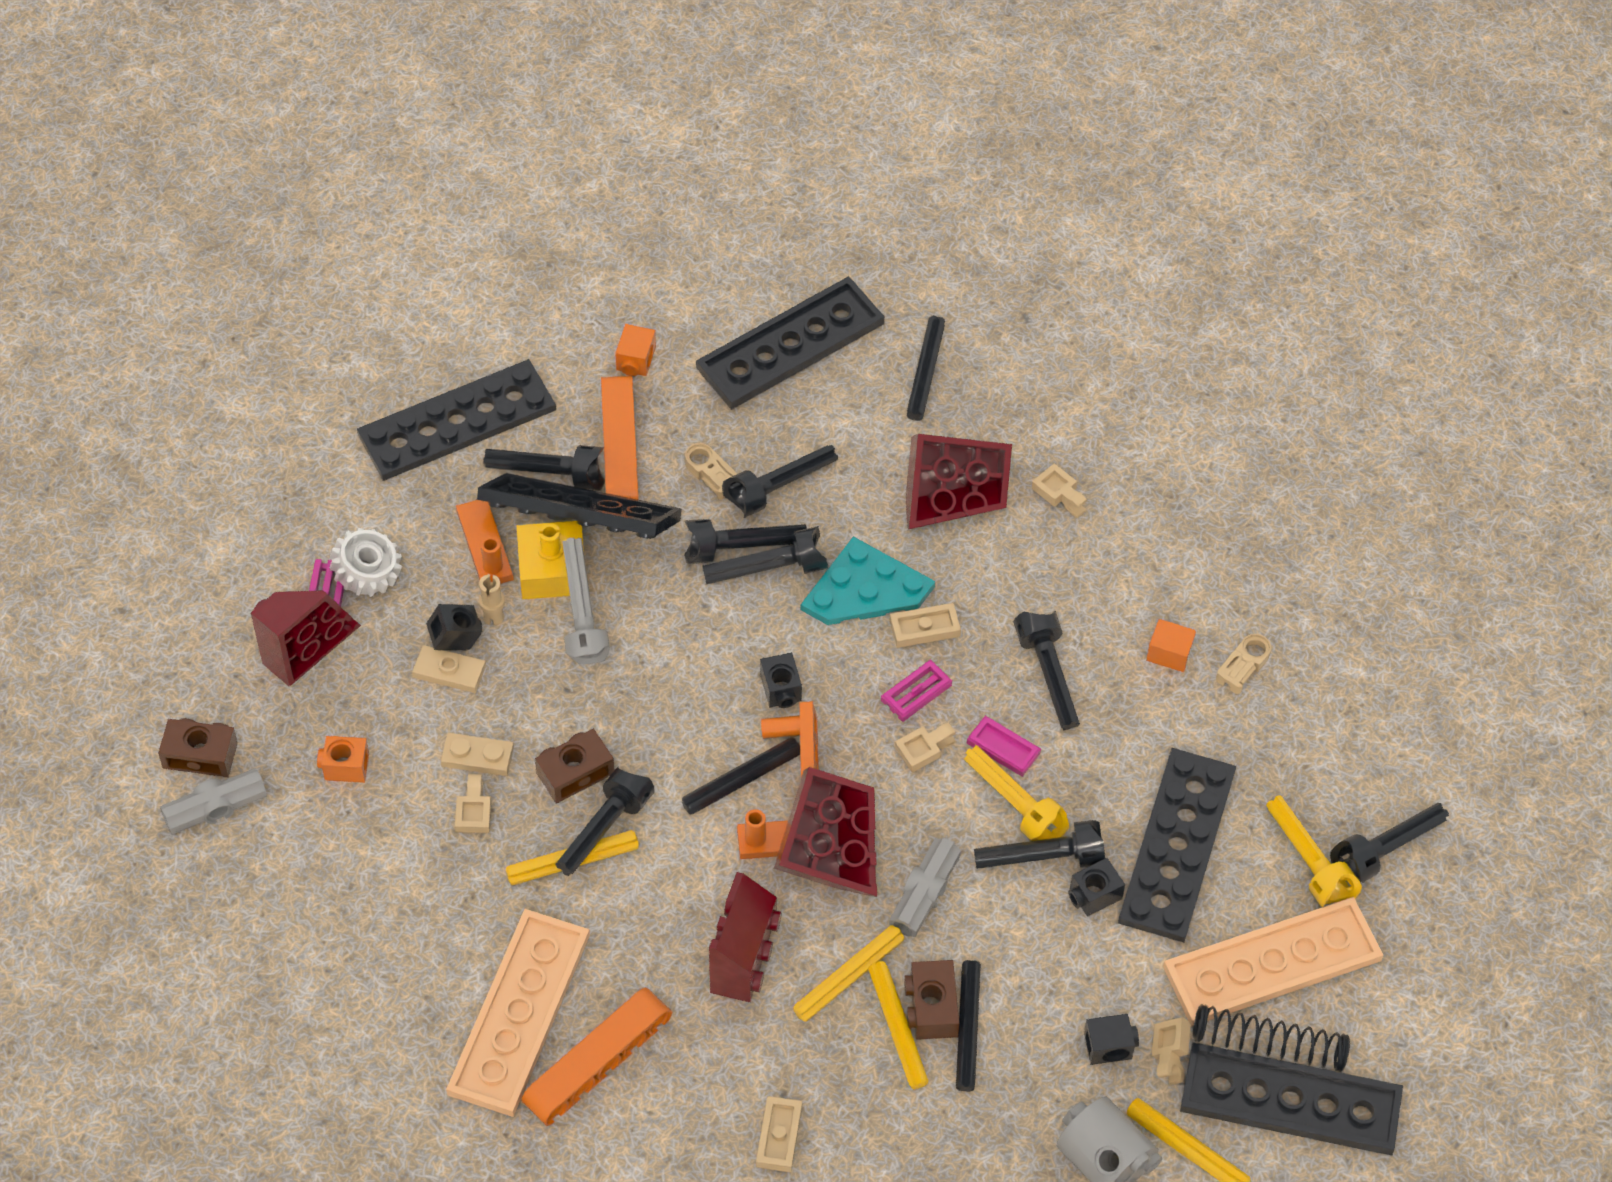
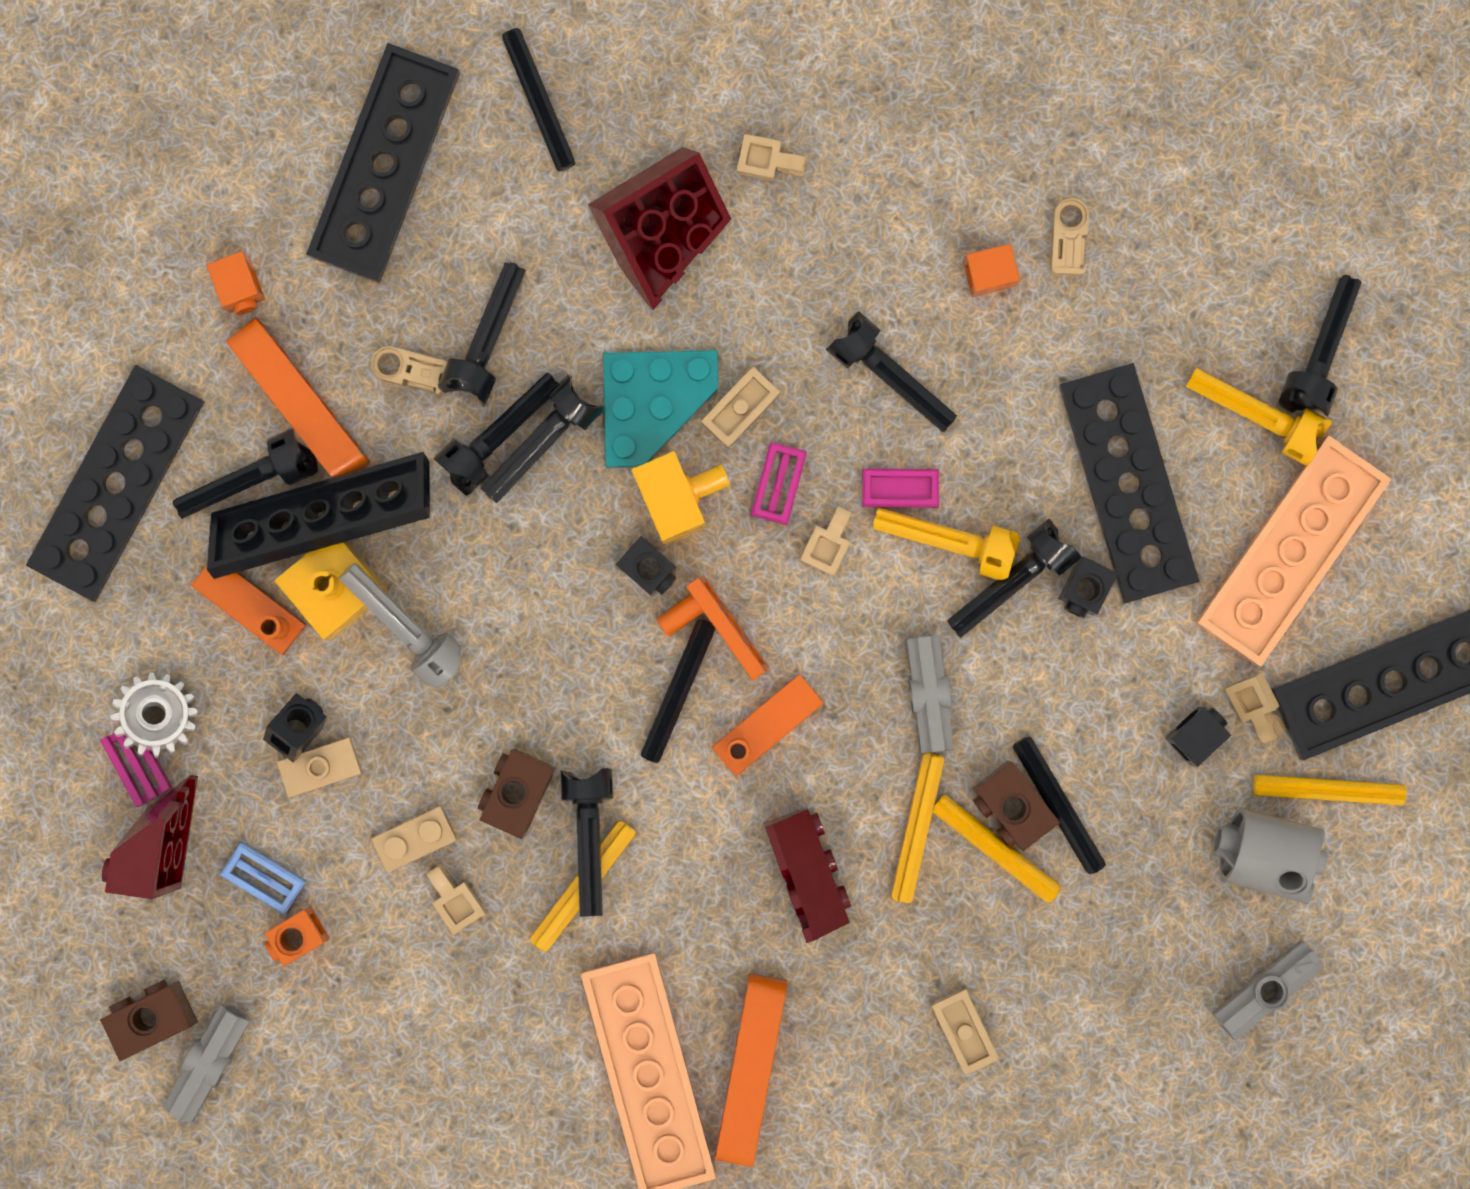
camera: 30 degrees left, 30 degrees up
(341, 690) = (291, 894): none -> light blue tile
(491, 600) = (302, 678): tan pin -> none
(831, 833) = (814, 713): dark red wedge -> none
(833, 642) = (674, 497): none -> yellow brick
(1341, 1051) = (1270, 669): black piece -> none

